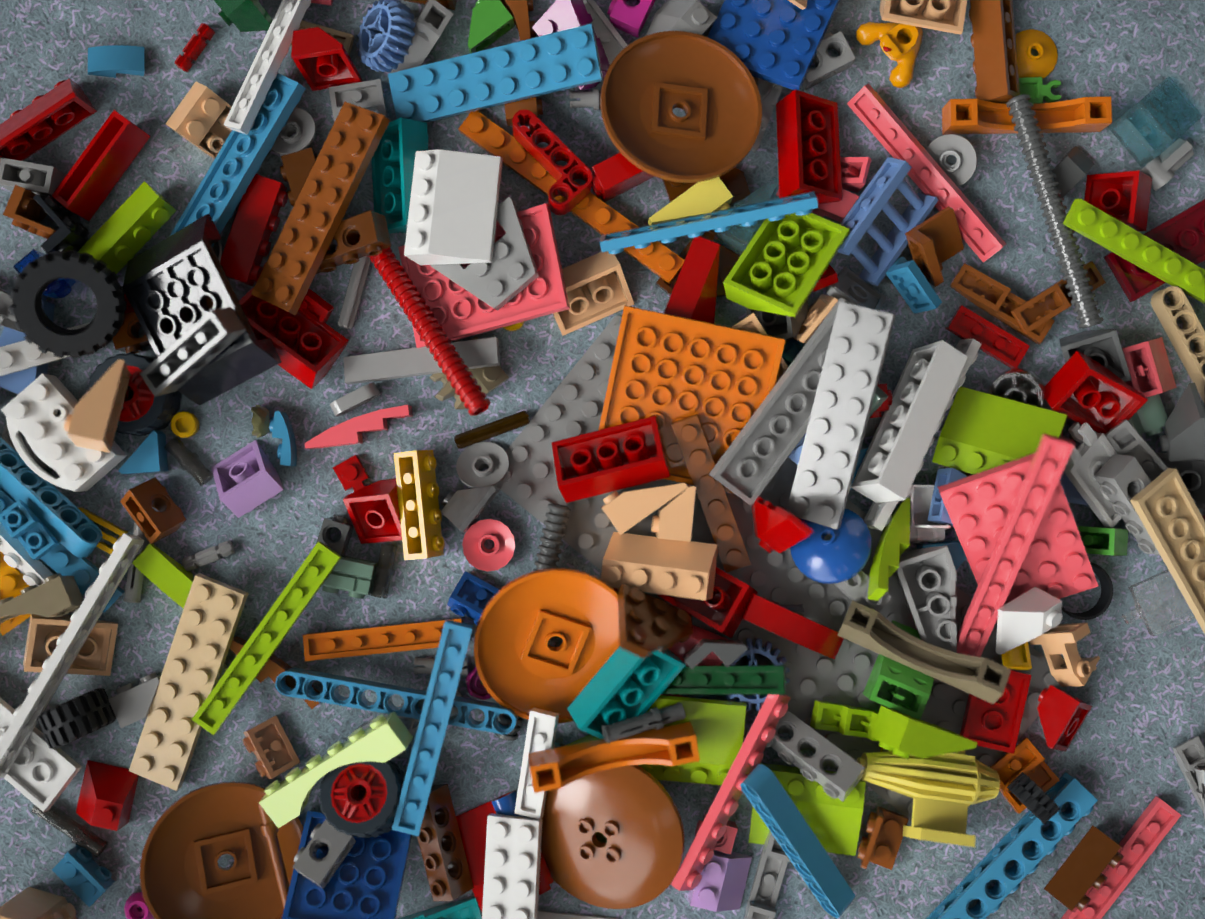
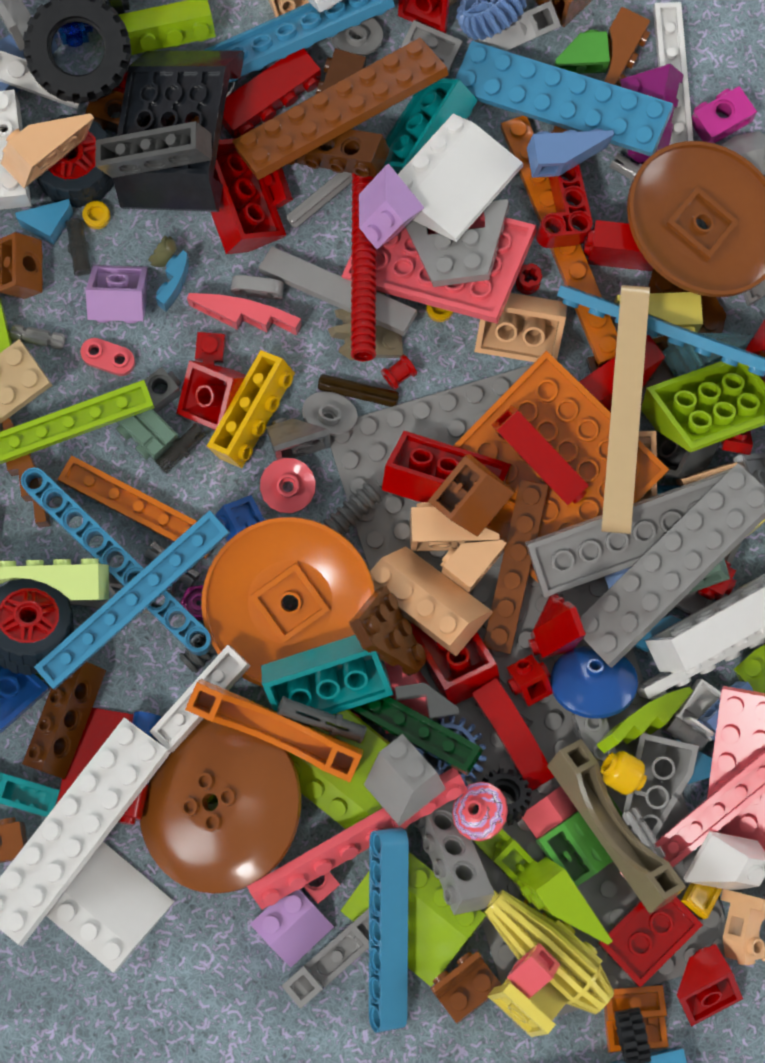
camera: 30 degrees right, 10 degrees down
(274, 534) = (107, 356): none -> coral plate
(415, 271) = (386, 207): none -> lavender slope
(514, 393) = (399, 372): none -> red bush
(524, 129) = (558, 152): none -> medium blue slope
(574, 252) = (533, 285): none -> red bush
(645, 471) = (471, 495): none -> dark orange slope
(674, 397) = (540, 456): none -> red slope
(721, 315) = (625, 410): none -> tan beam
(738, 729) = (403, 780): none -> light grey slope
(780, 576) = (529, 680): none -> red brick
(814, 695) = (515, 788): none -> black tyre
(818, 701) = (491, 812): none -> dish
(859, 667) = (549, 812): none -> coral slope
(902, 606) = (623, 772): none -> yellow head
(932, 805) = (533, 970): none -> coral brick
(946, 641) = (642, 830): none -> light grey axle

